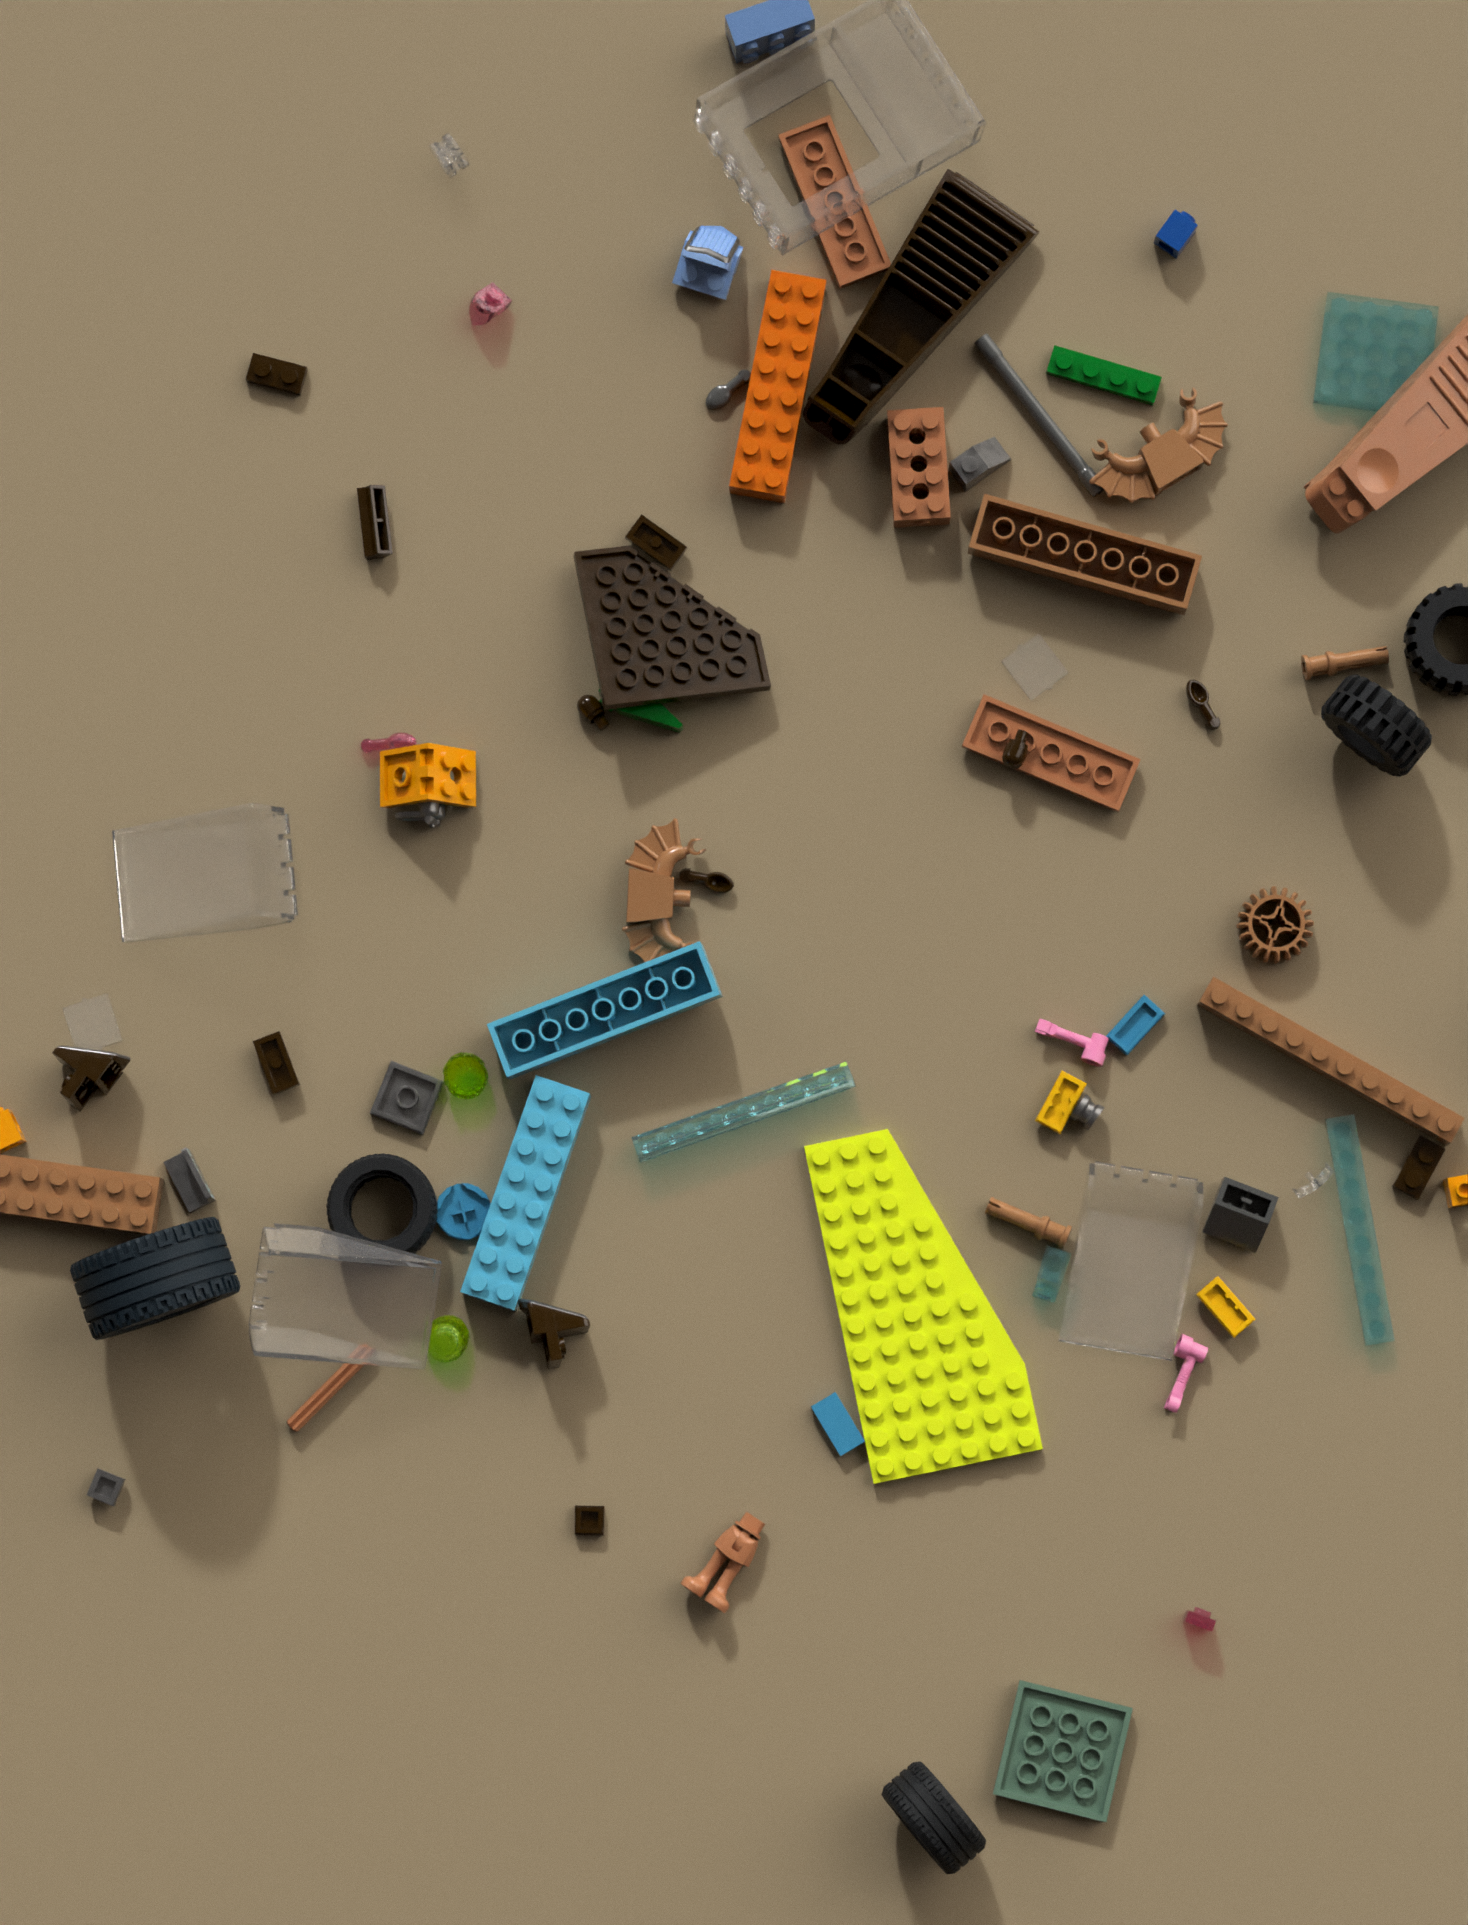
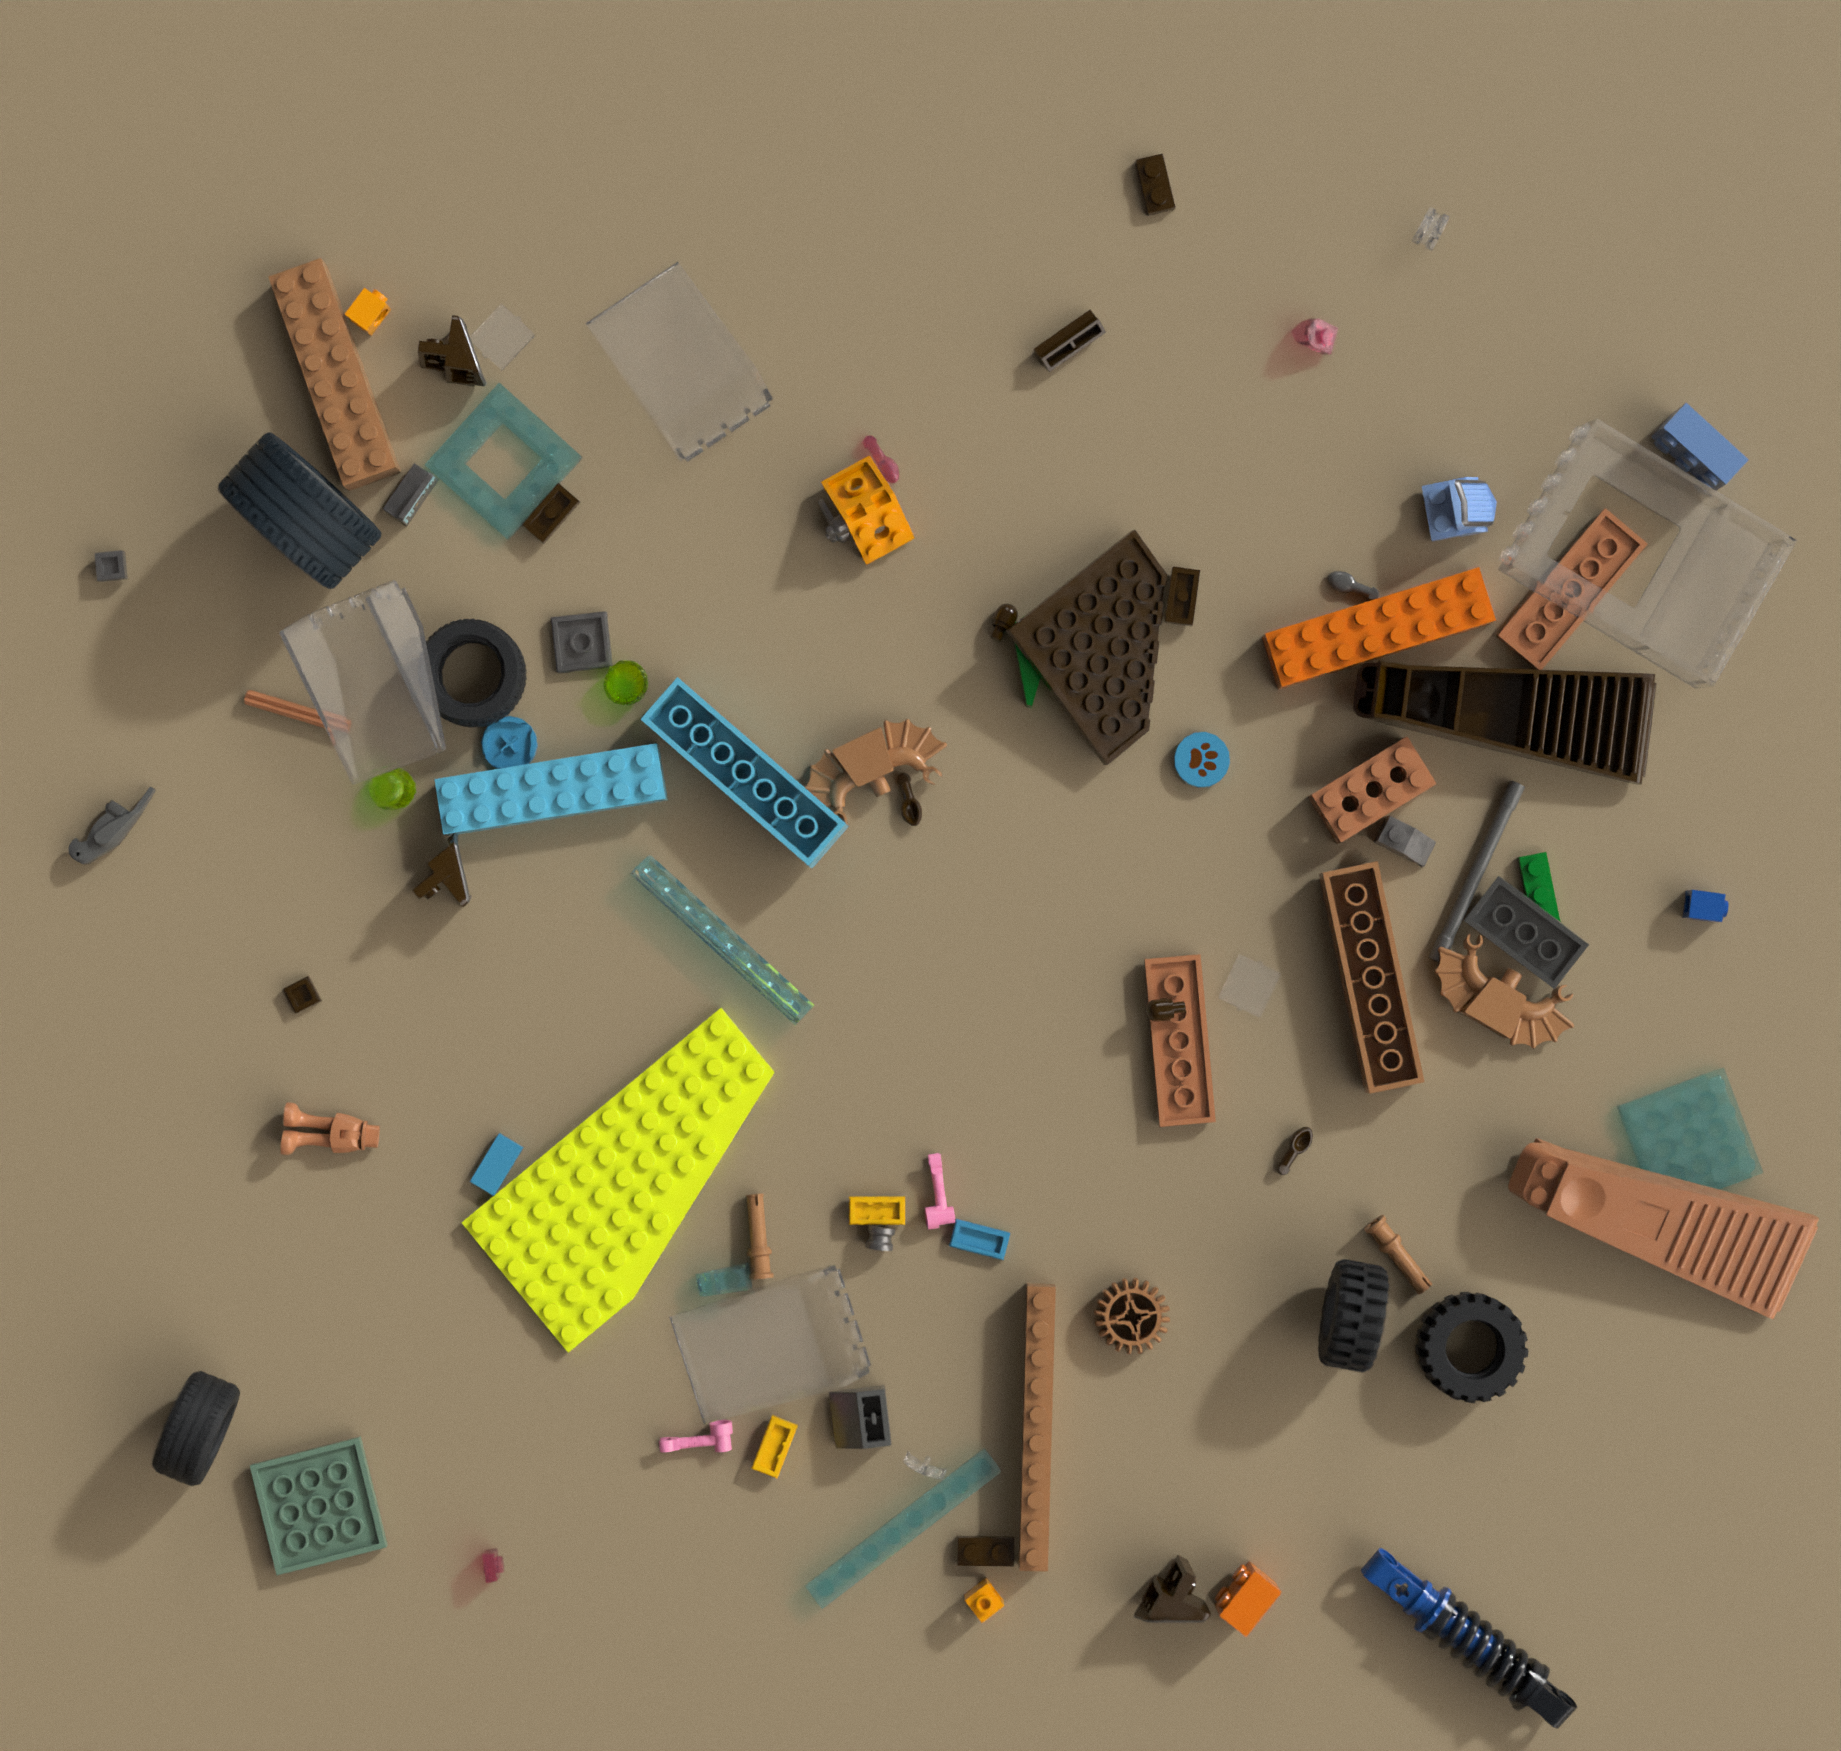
camera: 55 degrees right, 5 degrees up
(255, 1101) = (451, 459): none -> clear light blue plate
(345, 1617) = (108, 830): none -> dark grey animal
(810, 602) = (1201, 759): none -> dark azure tile
(1116, 398) = (1526, 932): none -> dark grey plate

